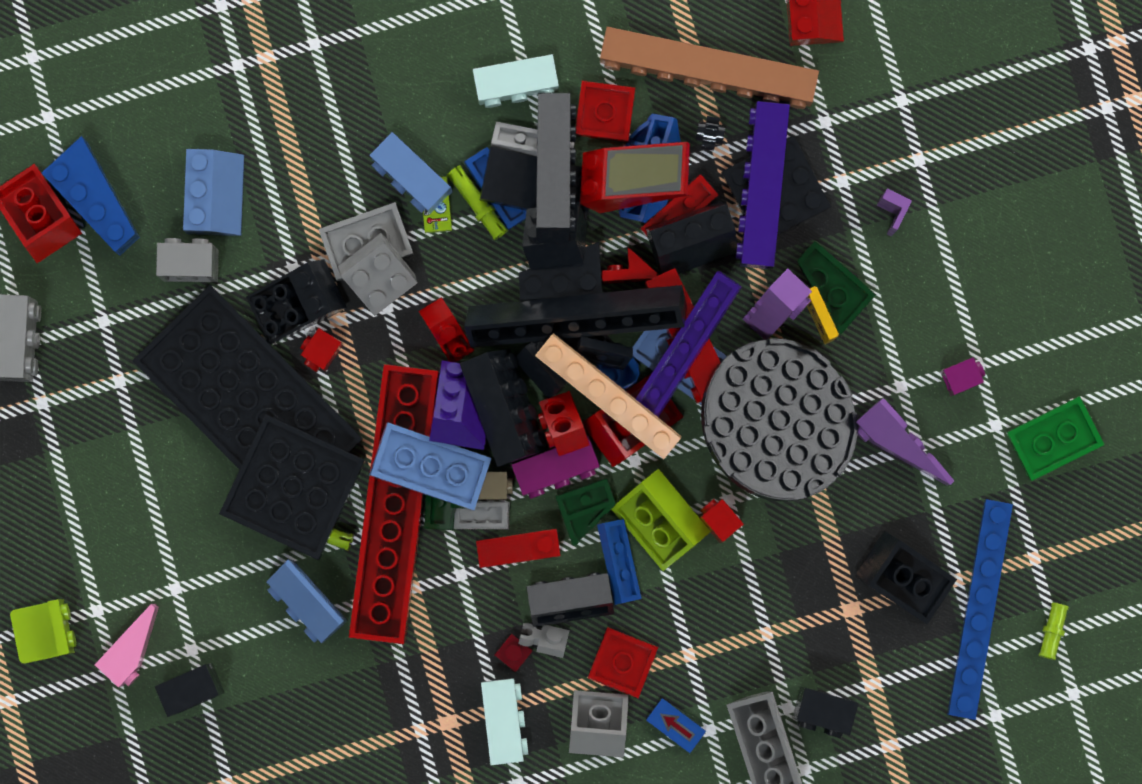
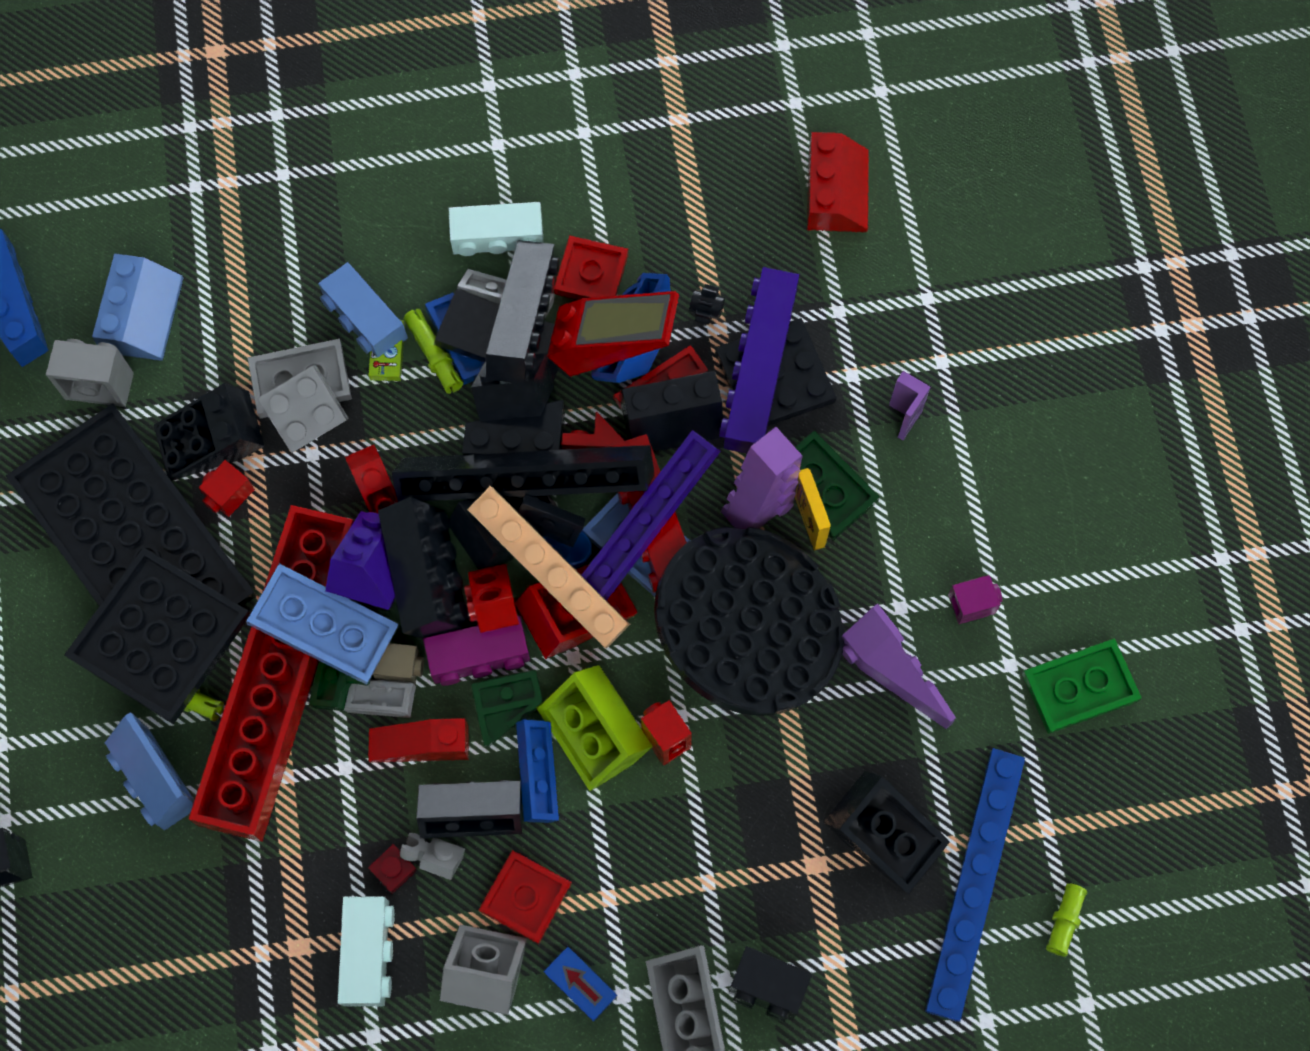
camera: 10 degrees right, 15 degrees down
(708, 67) = (711, 236): nougat brick -> none

